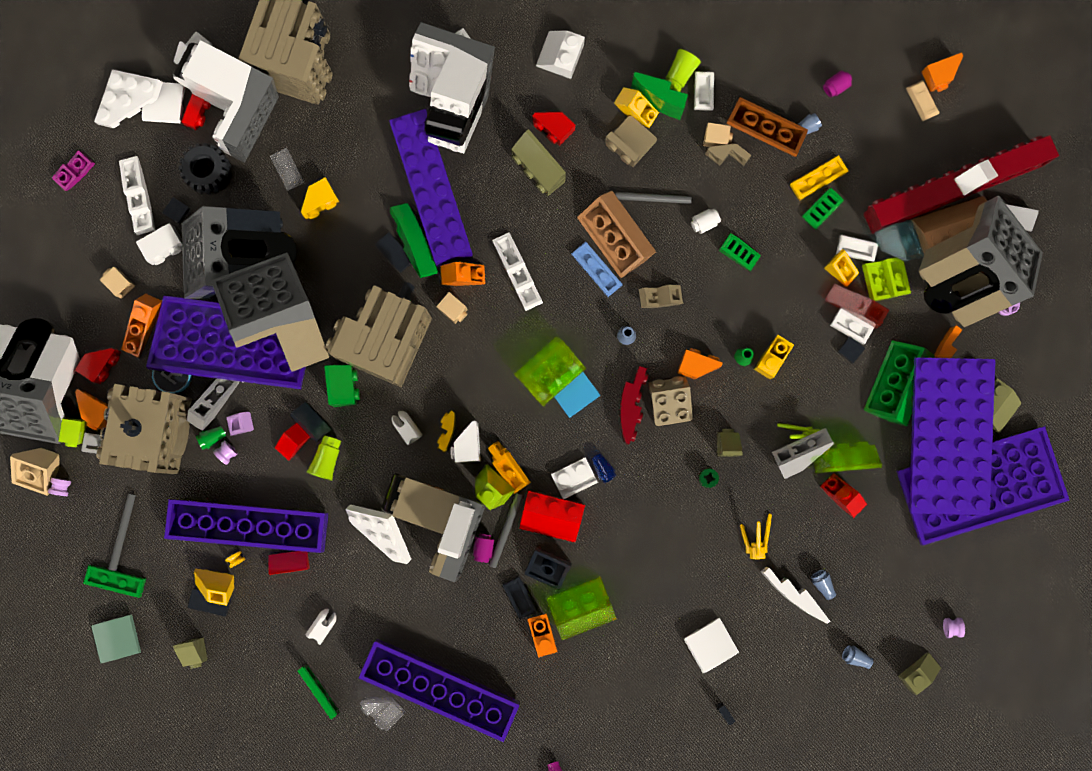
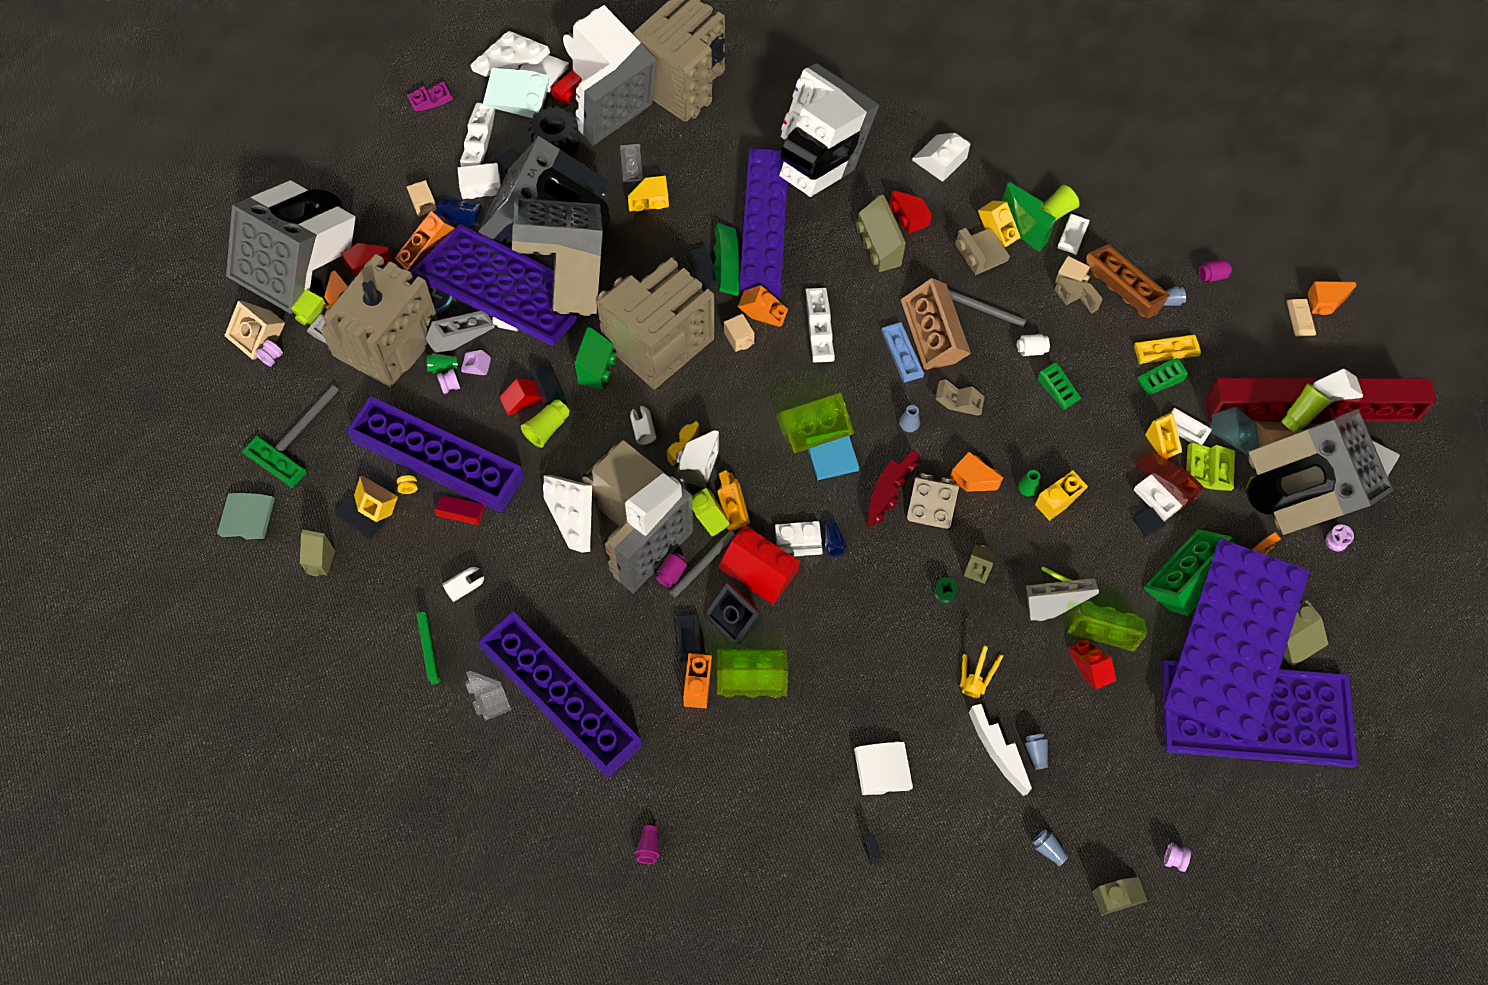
camera: 20 degrees right, 20 degrees down
(151, 139) = (516, 91): none -> light aqua slope
(155, 280) = (458, 211): none -> clear blue slope
(954, 208) = (1306, 408): none -> lime plant

